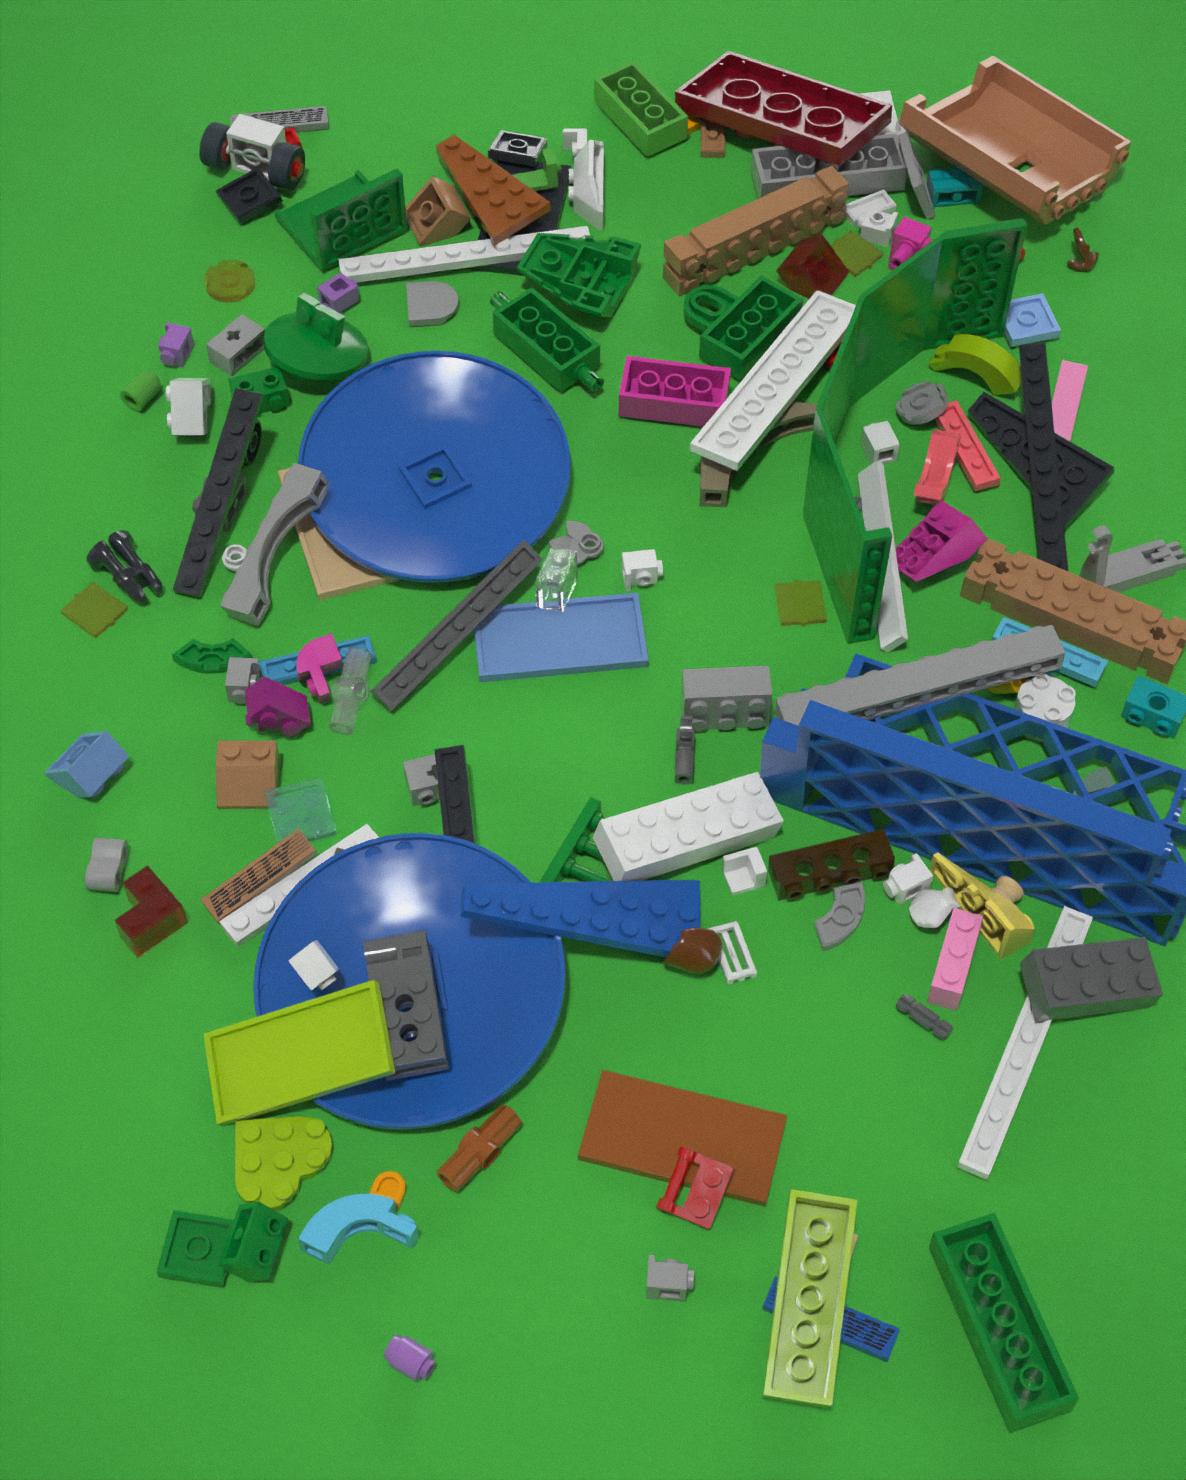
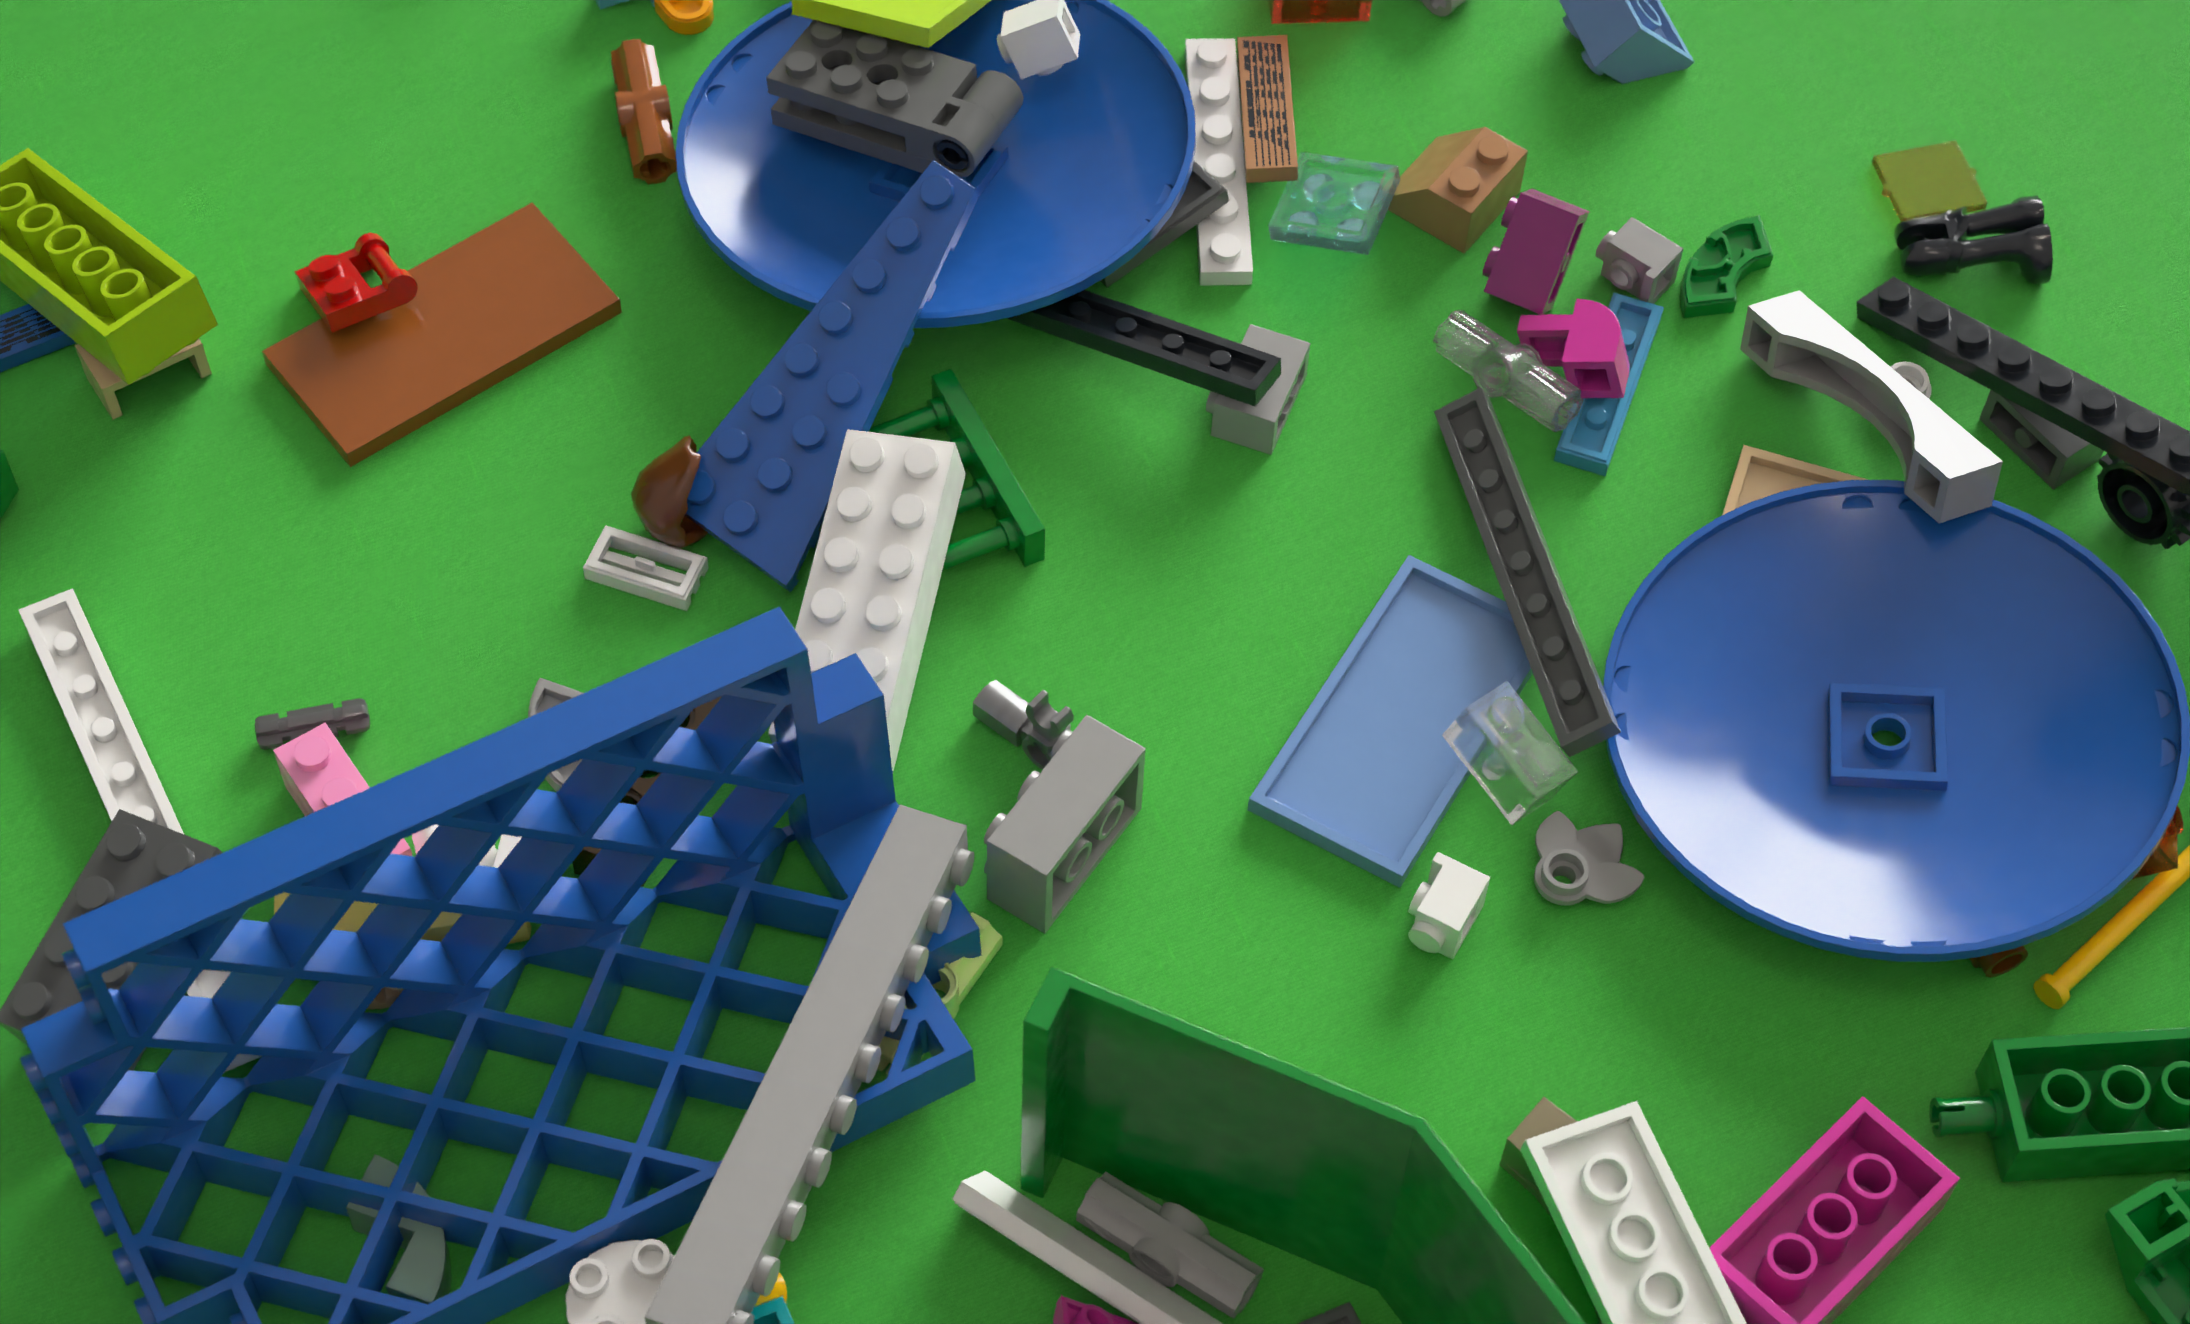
camera: 125 degrees right, 0 degrees up
(668, 1279) = (278, 183): light grey brick -> none

